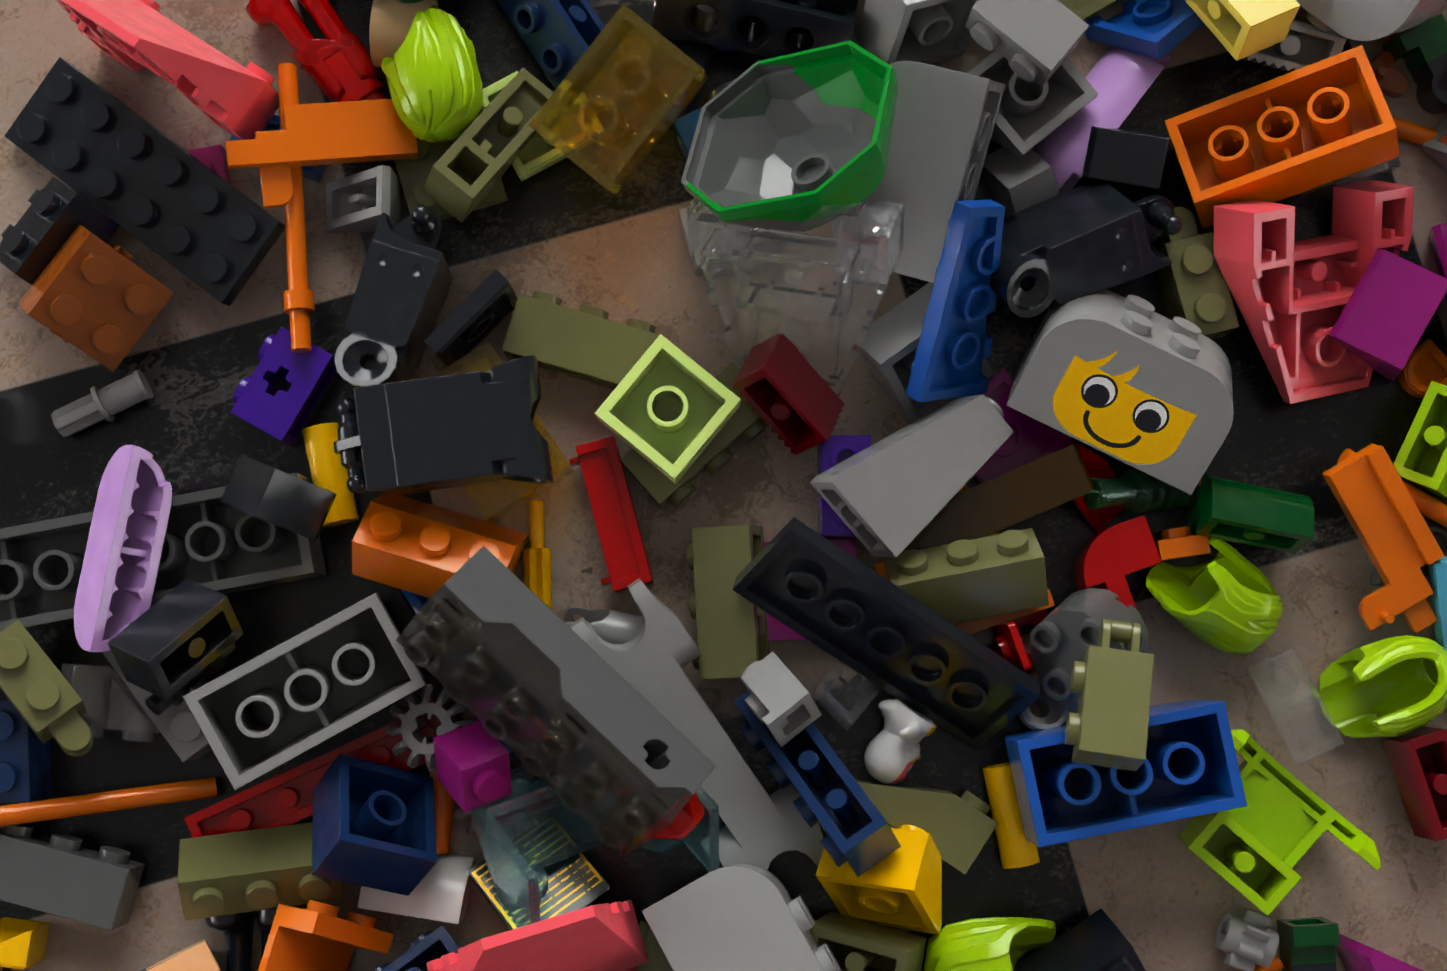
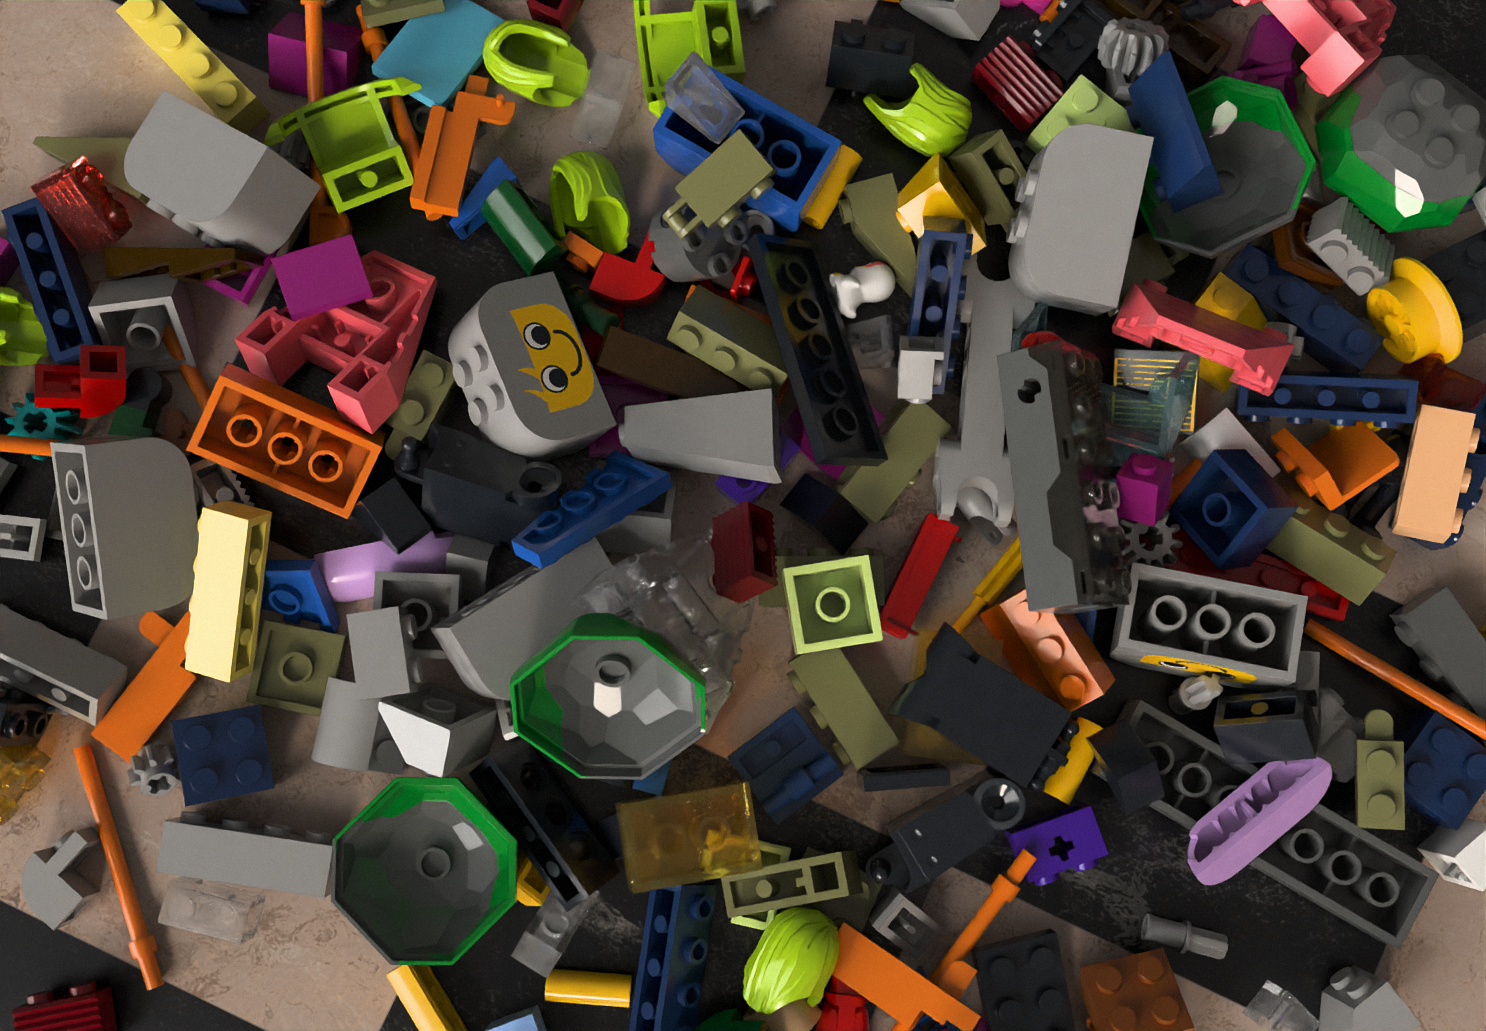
camera: 140 degrees left, 0 degrees up
(268, 625) = (1195, 693): none -> light grey axle
(586, 247) = (785, 765): none -> dark blue plate
(746, 500) = (824, 513): none -> black slope
(1204, 765) = (702, 99): none -> clear slope
(1324, 547) = (470, 212): none -> blue slope

